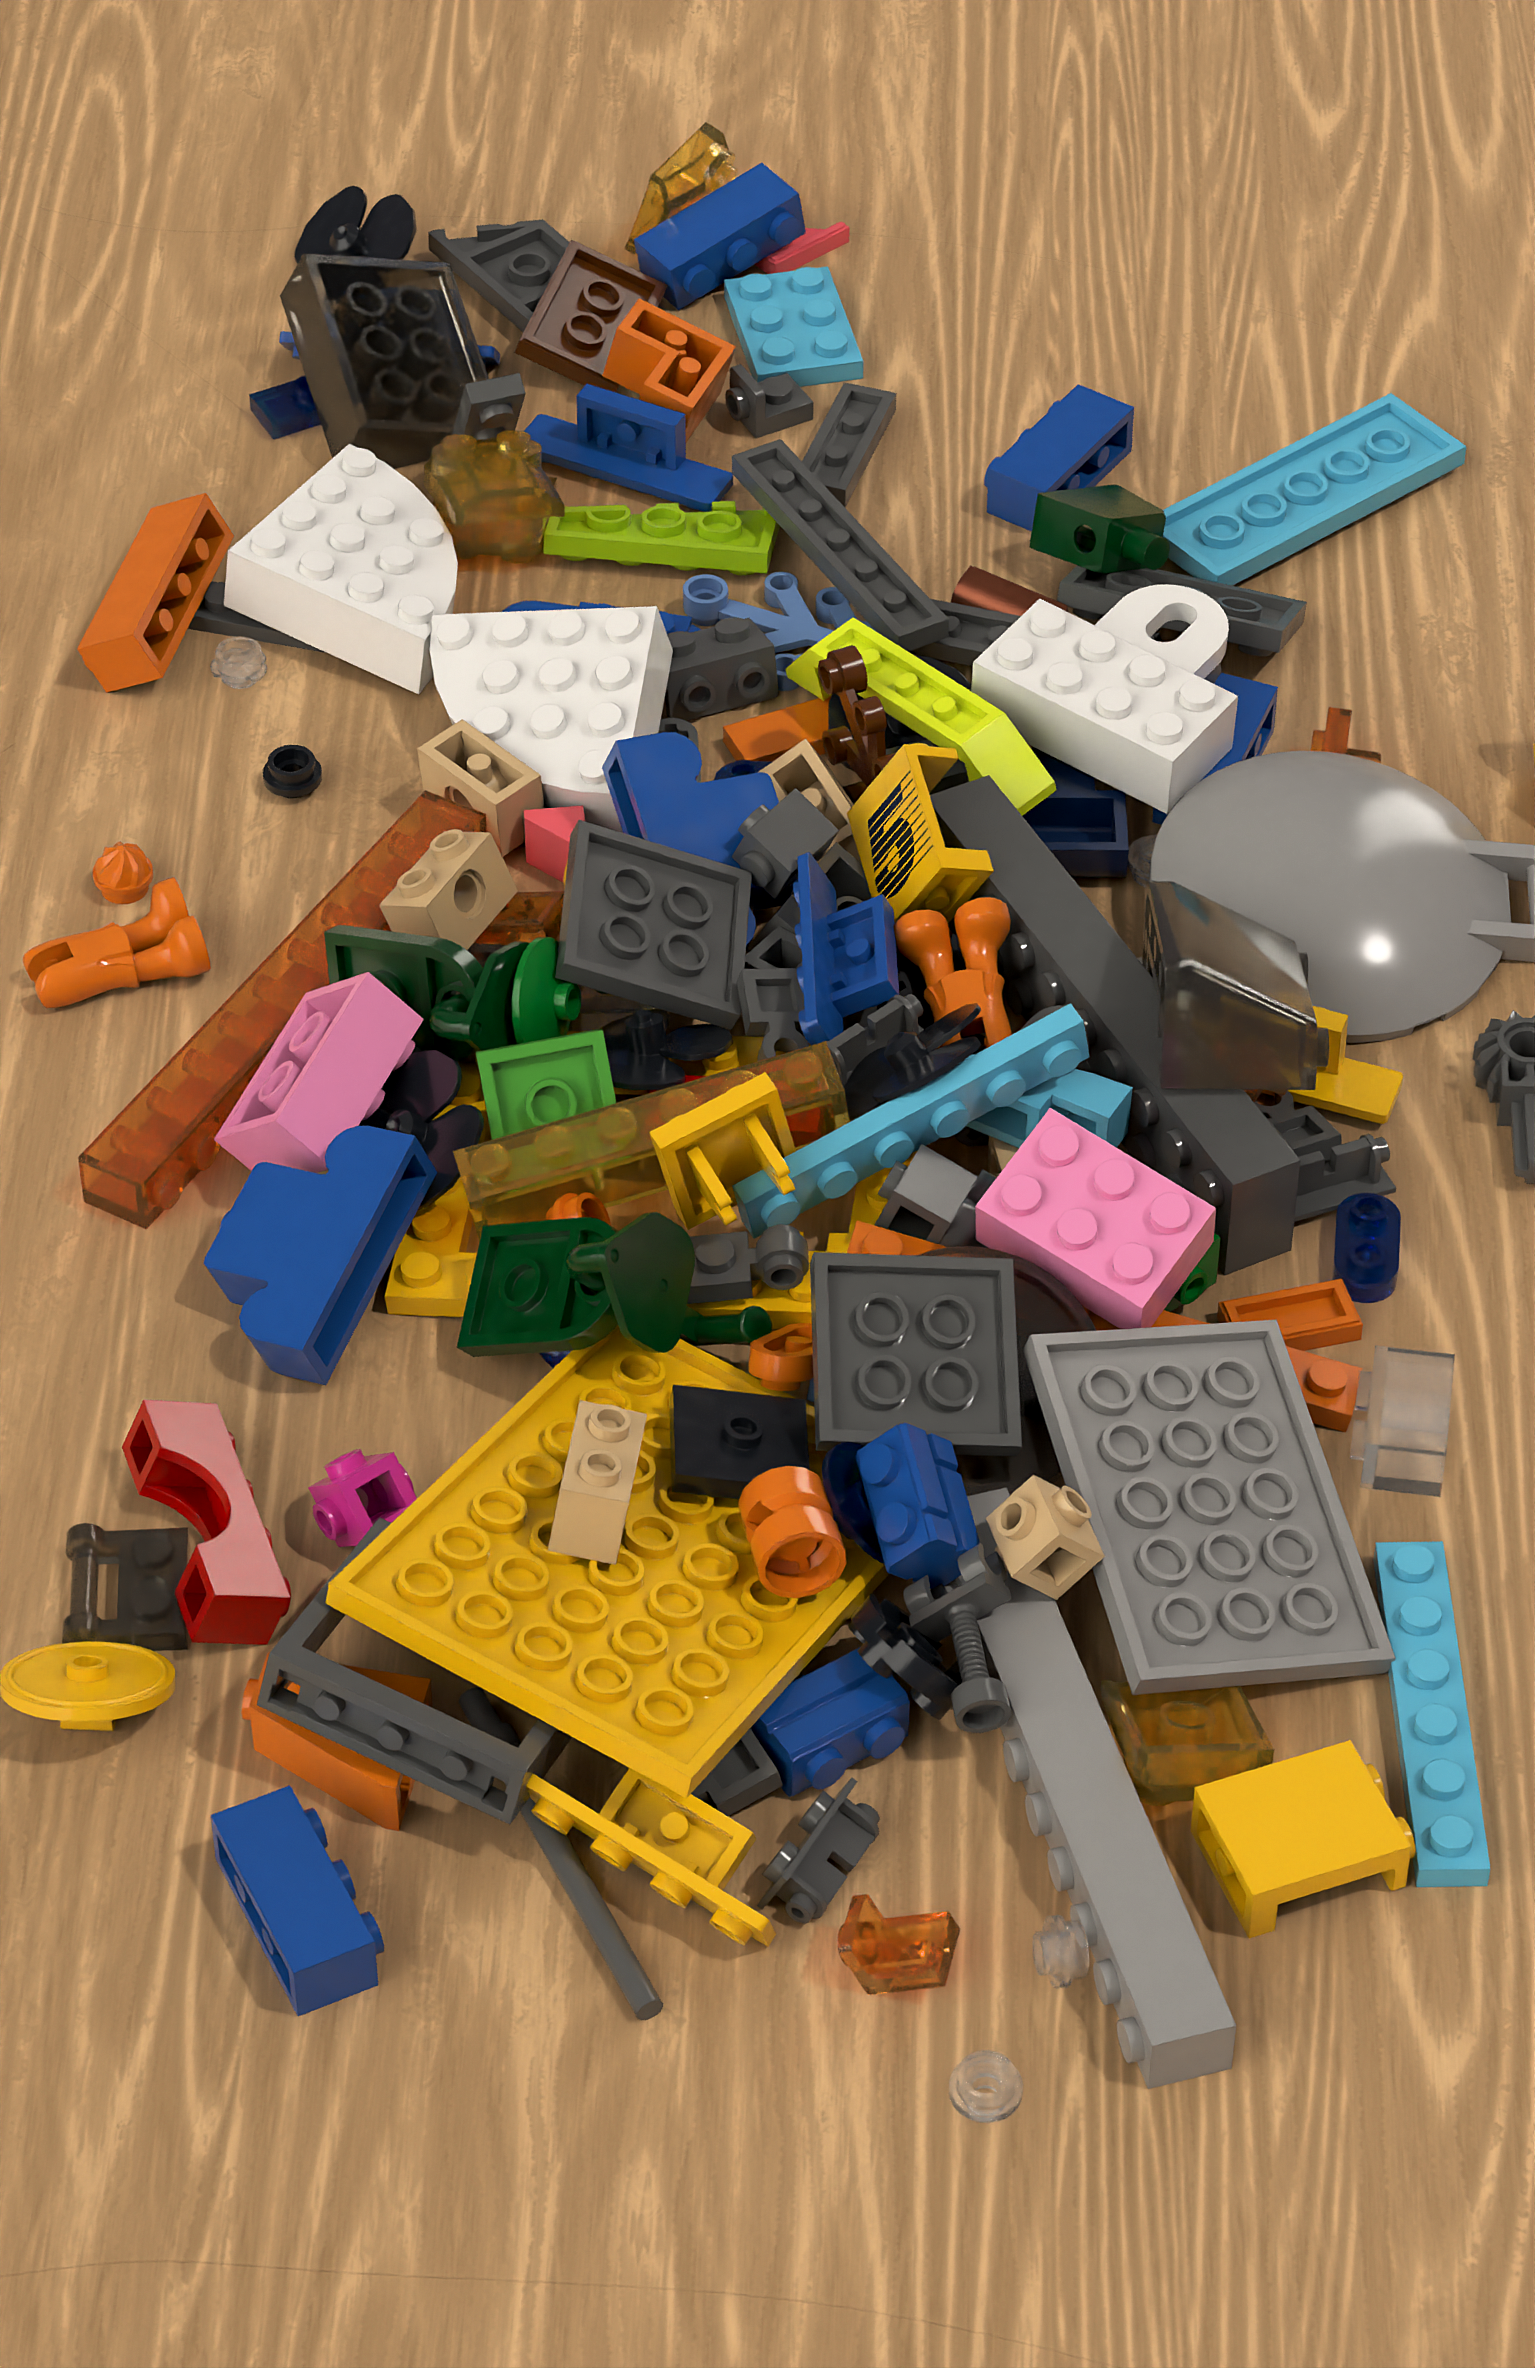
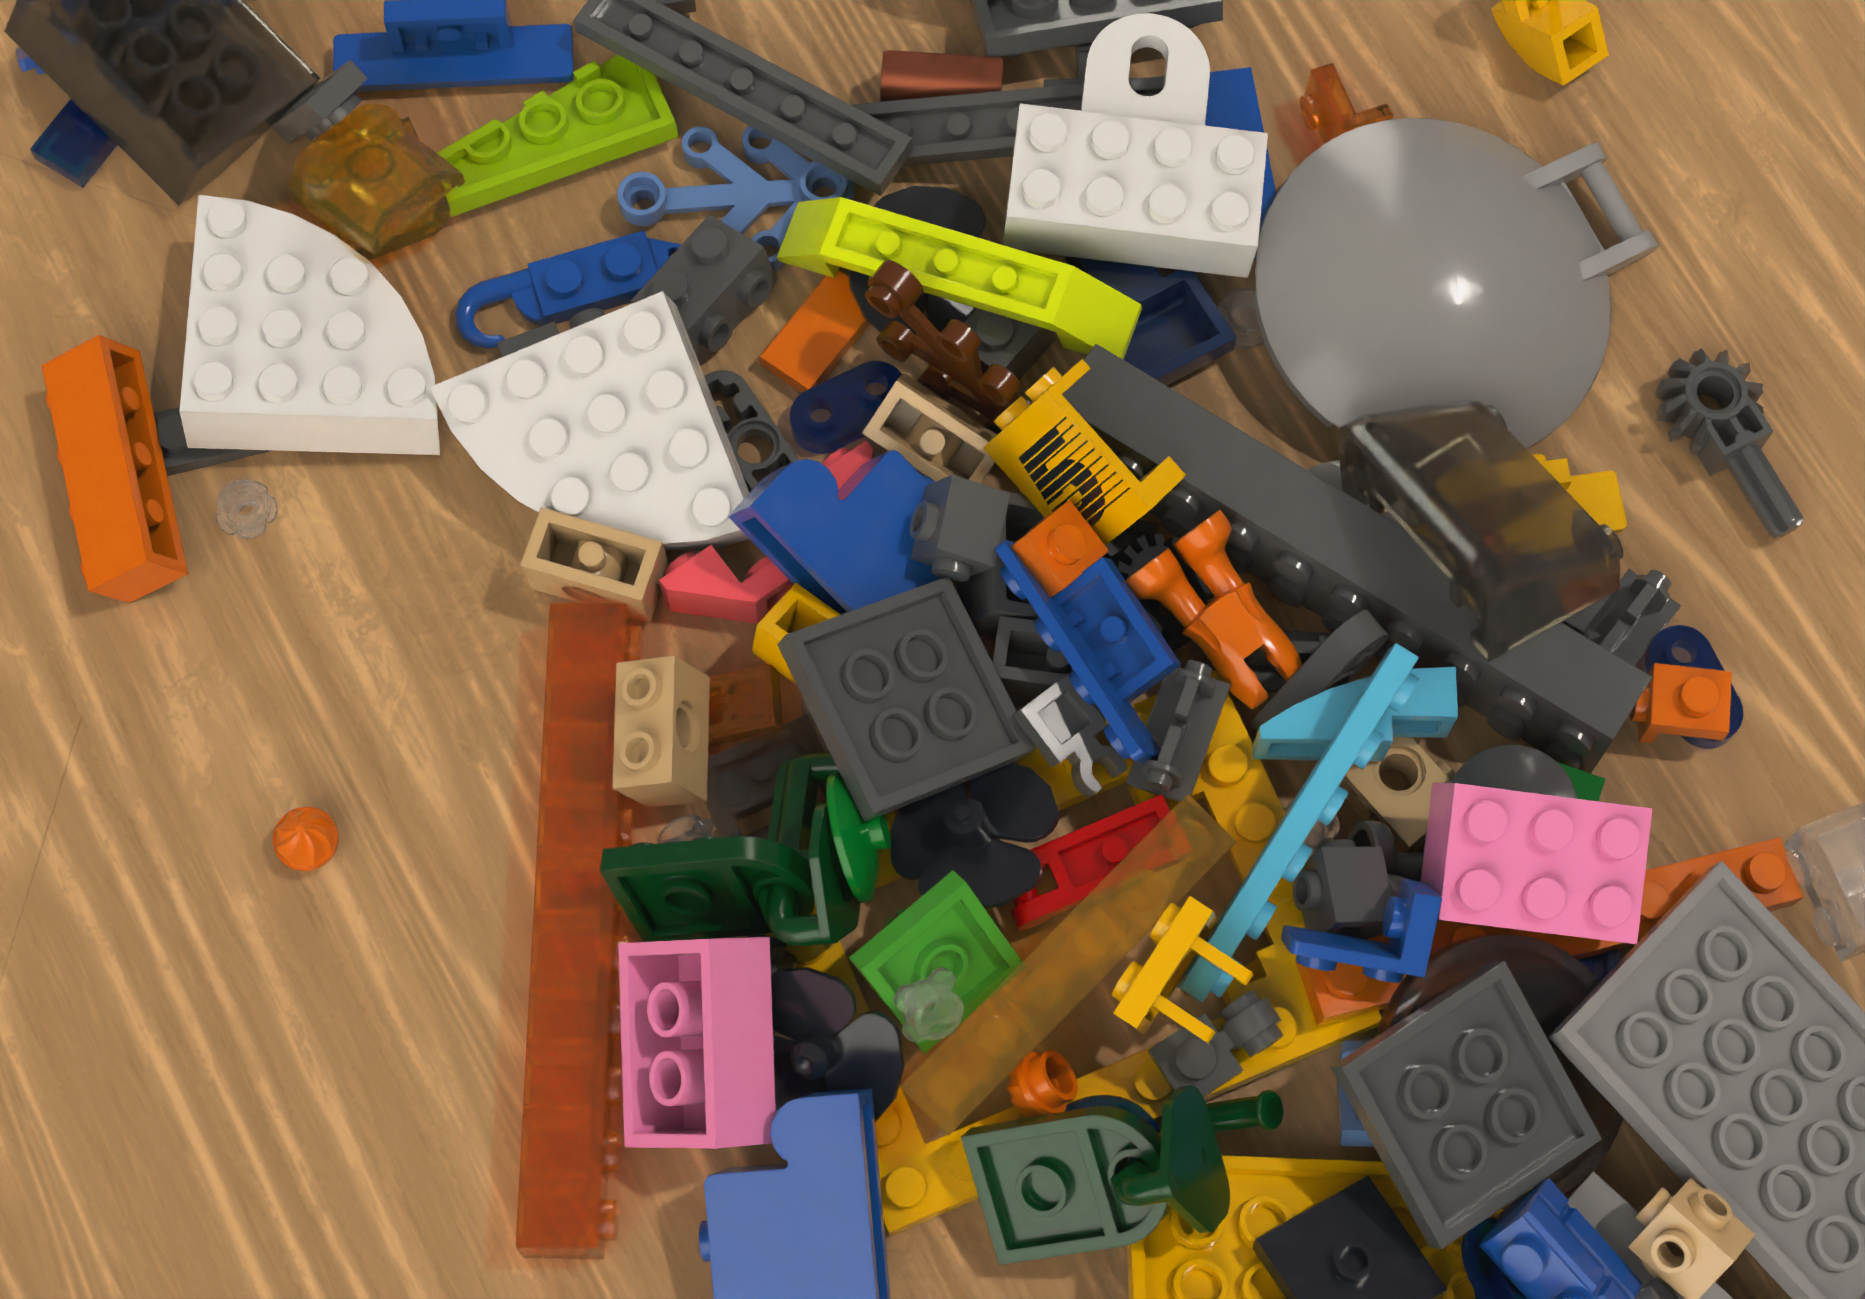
camera: 30 degrees left, 25 degrees up
(118, 956) = (360, 958): orange piece -> none
(292, 771) = (385, 607): black plate -> none
(509, 1104) = (931, 1020): none -> clear plate
(783, 1357) = (1316, 1125): orange plate -> none
(851, 877) = (1059, 548): none -> orange bracket
(910, 1062) = (1254, 773): black piece -> none
(948, 1209) = (1406, 921): none -> blue bracket
(1306, 1314) = (1688, 802): orange tile -> none
(1338, 1234) = (1684, 703): none -> orange bracket

